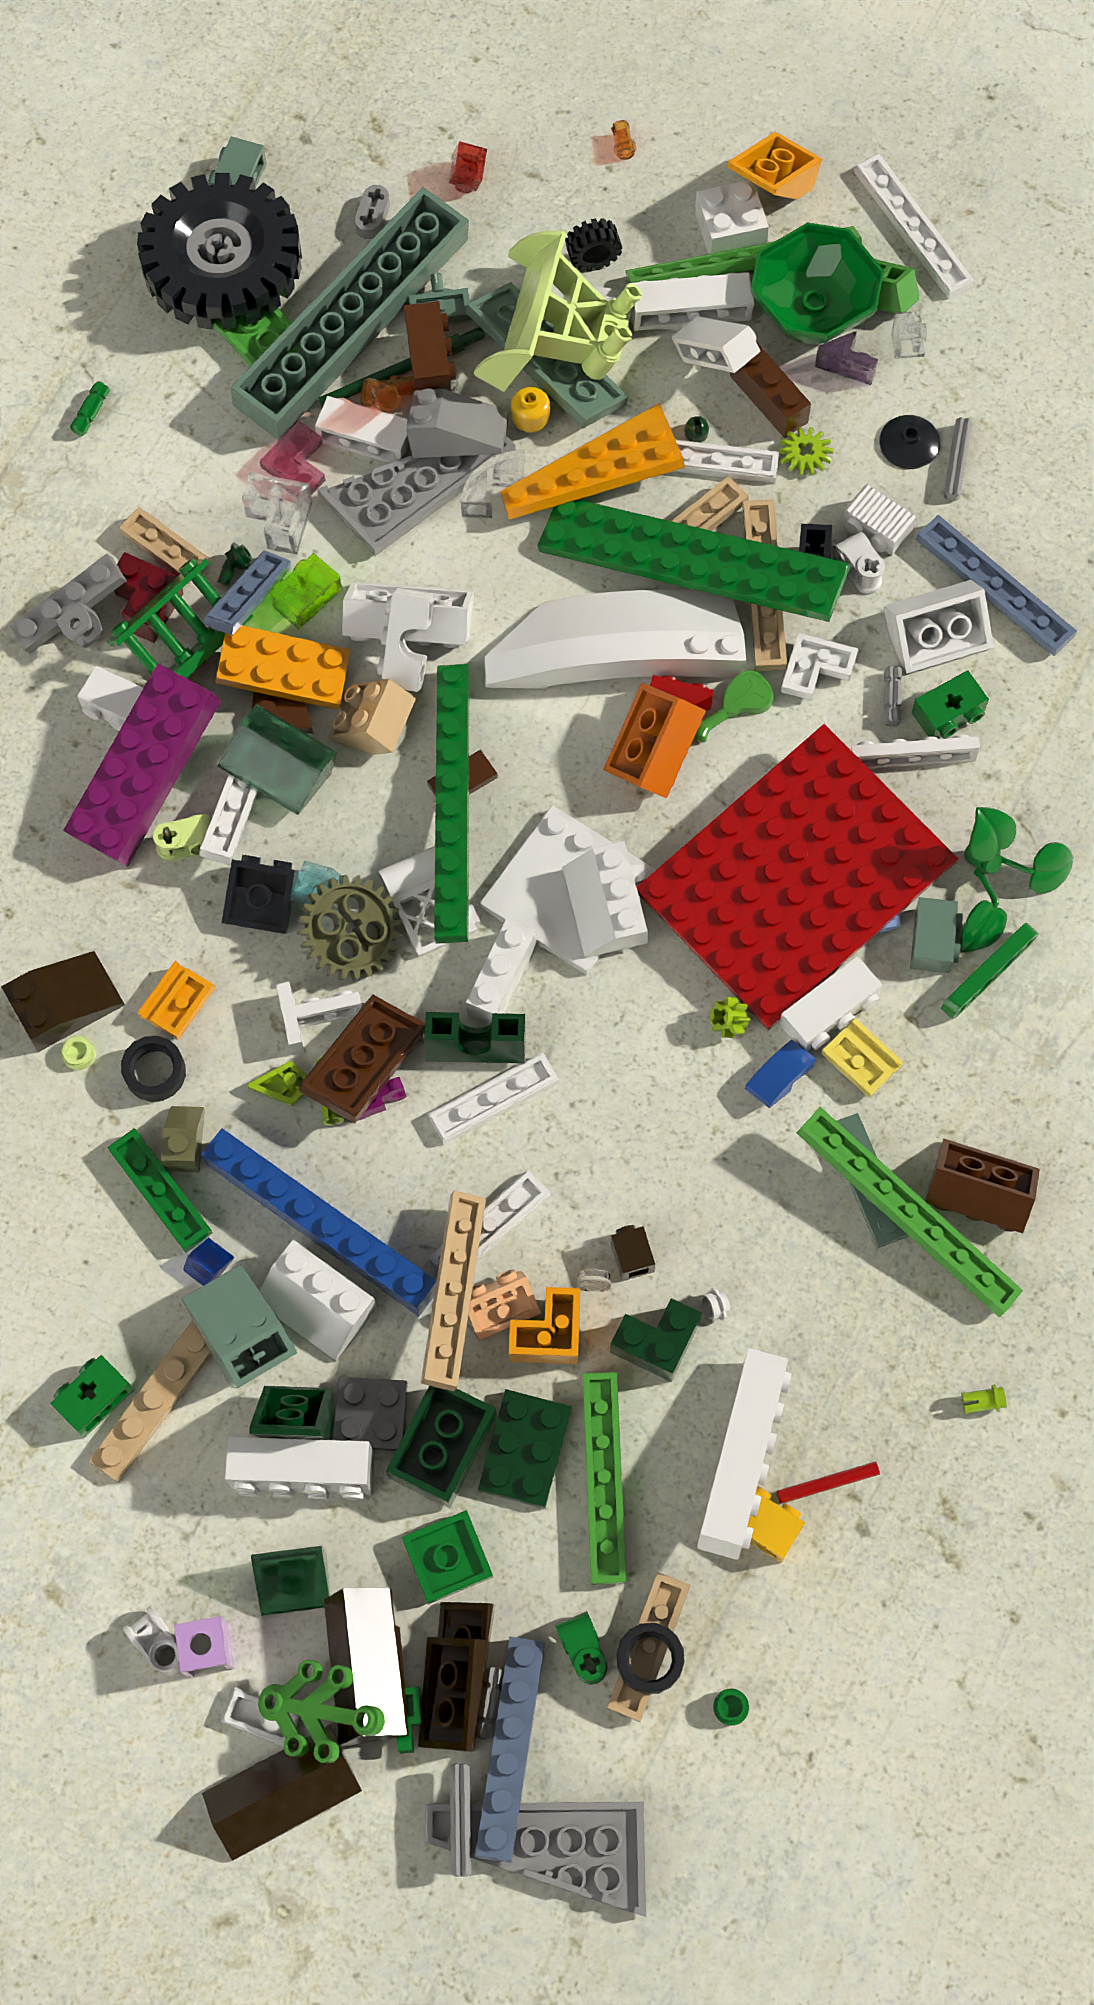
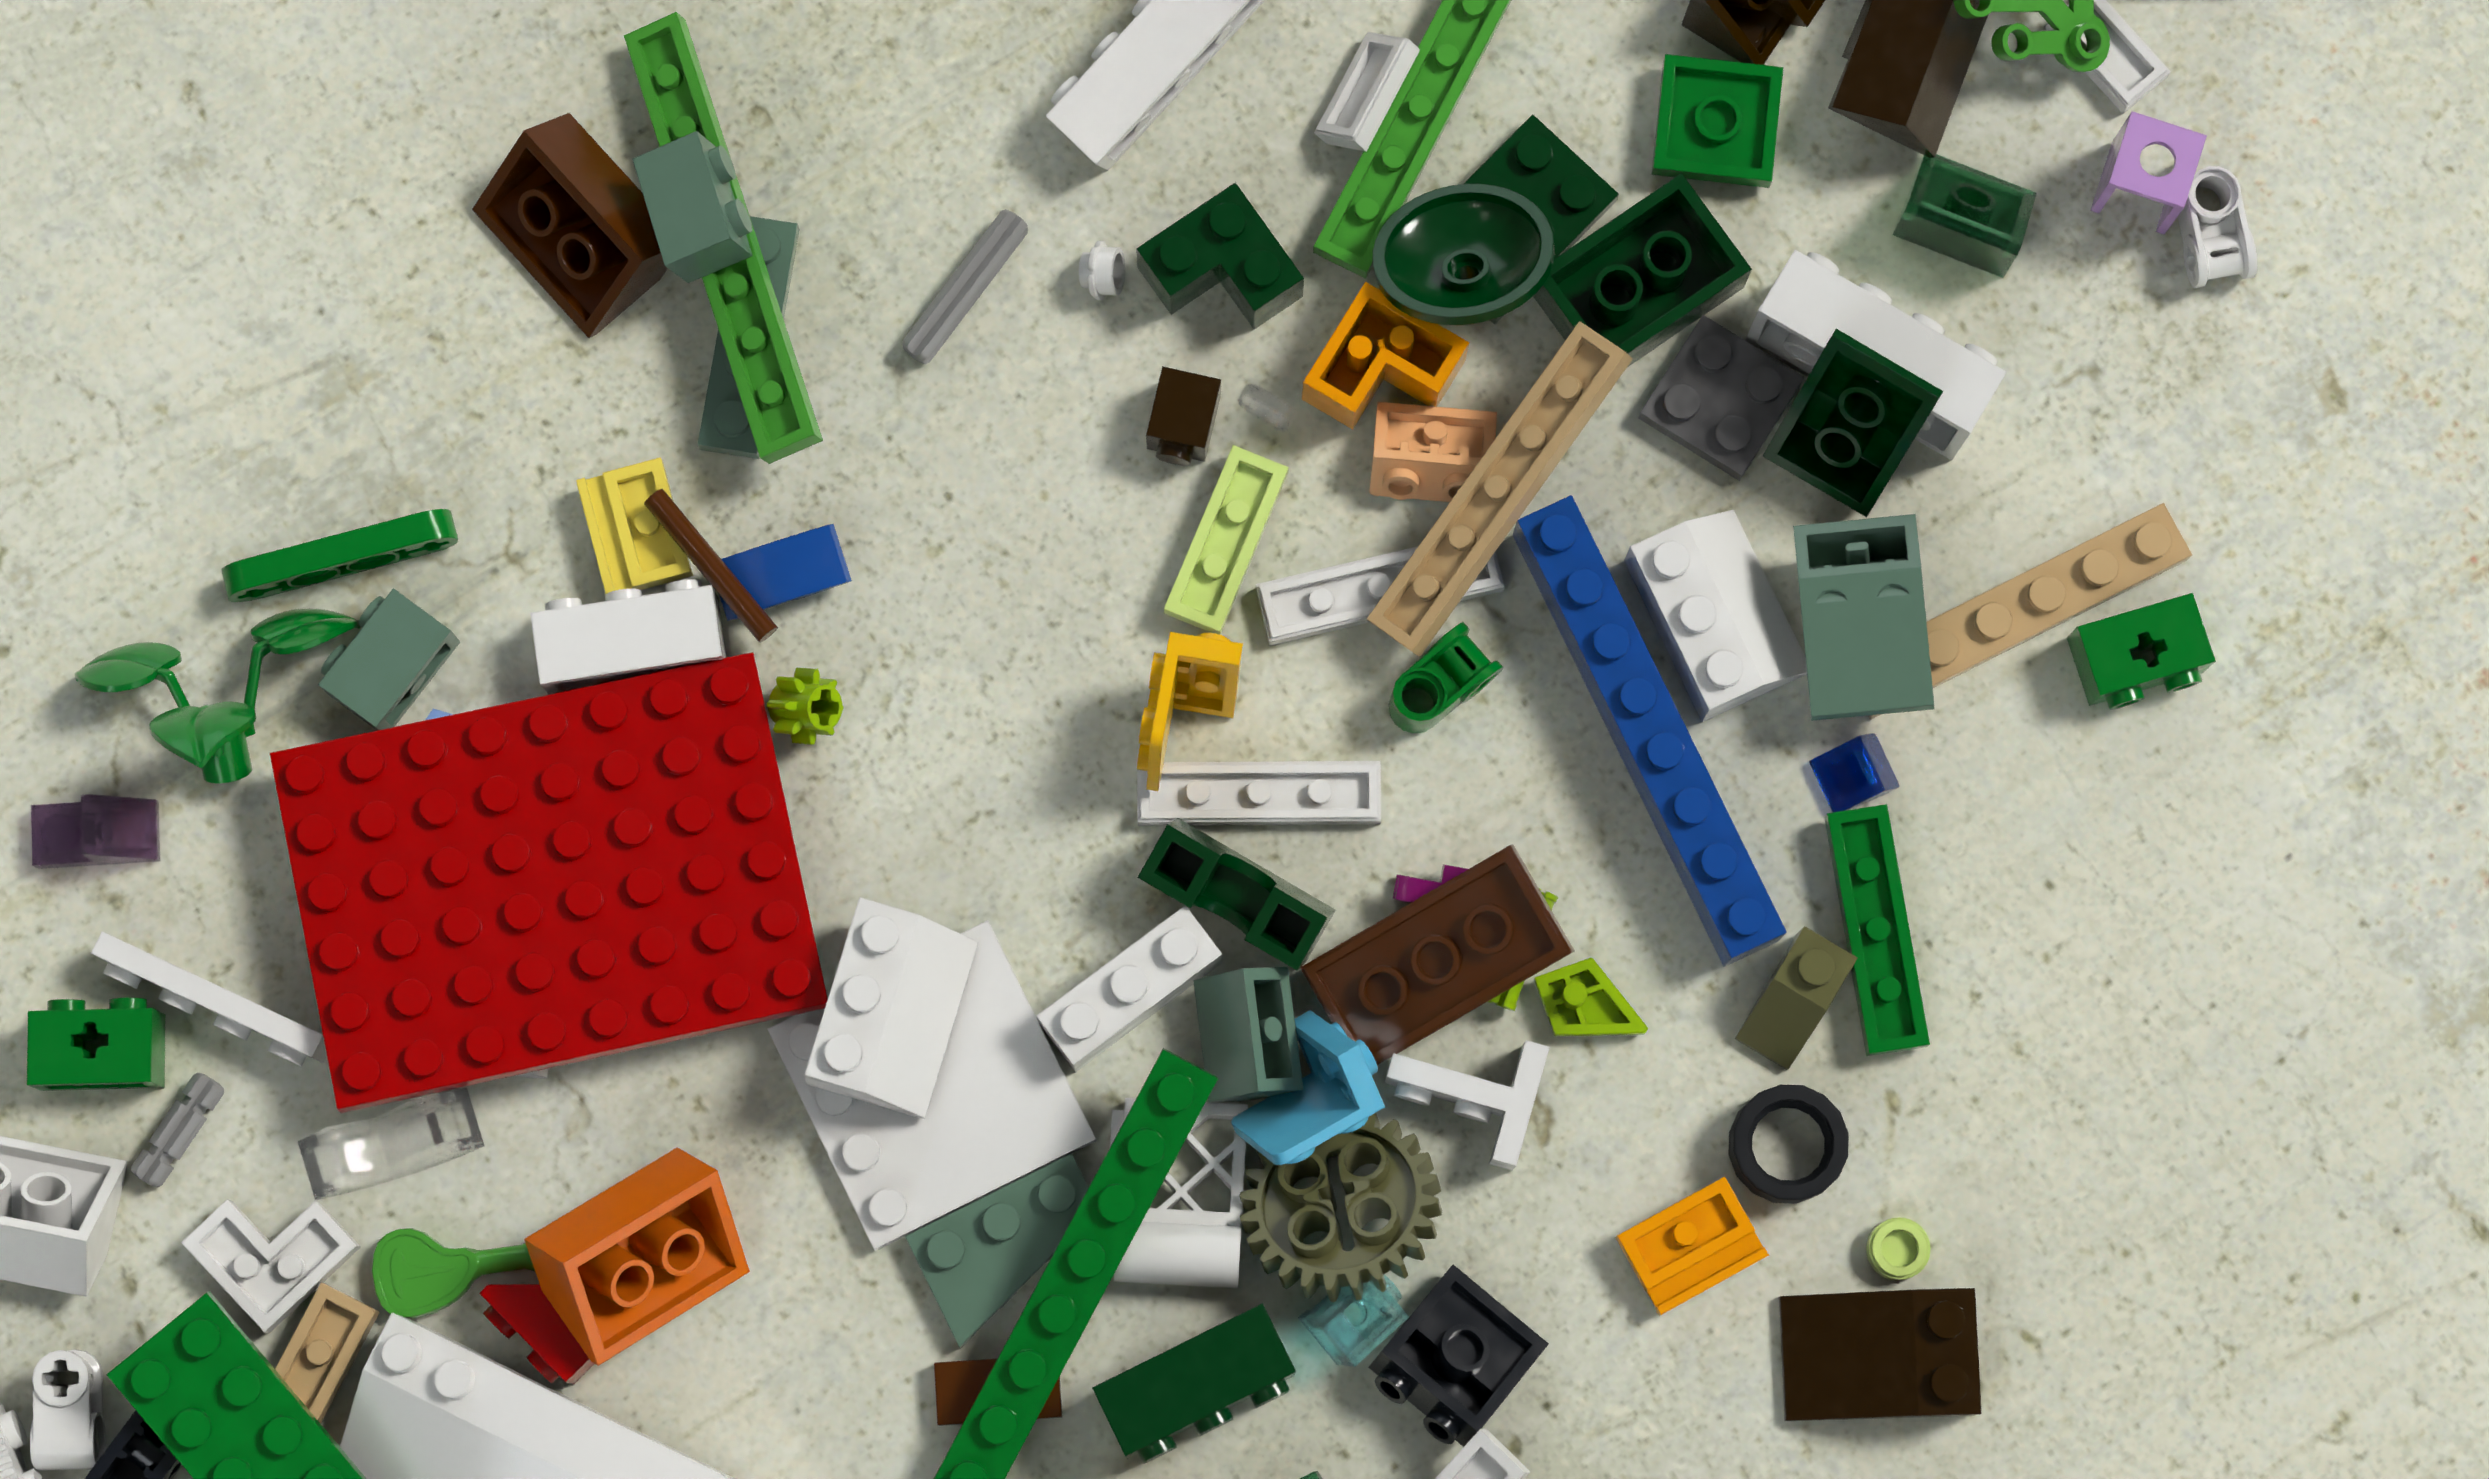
camera: 155 degrees left, 10 degrees up
(372, 816) = (1196, 1384): none -> dark green brick
(386, 959) = (1333, 1099): none -> medium azure bracket
(432, 1199) = (1448, 672): none -> green piece
(434, 978) = (1248, 1033): none -> sand green brick
(498, 837) = (996, 1244): none -> sand green wing
(555, 1398) = (1463, 254): none -> dark green dish
(564, 1108) = (1192, 676): none -> yellow bracket
(577, 1205) = (1226, 540): none -> yellowish green plate
(636, 1470) = (1367, 91): none -> white tile
(778, 1261) = (965, 286): none -> light grey axle
(803, 721) = (391, 1145): none -> clear brick
(814, 1054) = (710, 565): none -> reddish brown bar
(929, 1208) = (694, 206): none -> sand green brick
(1017, 793) = (95, 832): none -> clear purple slope

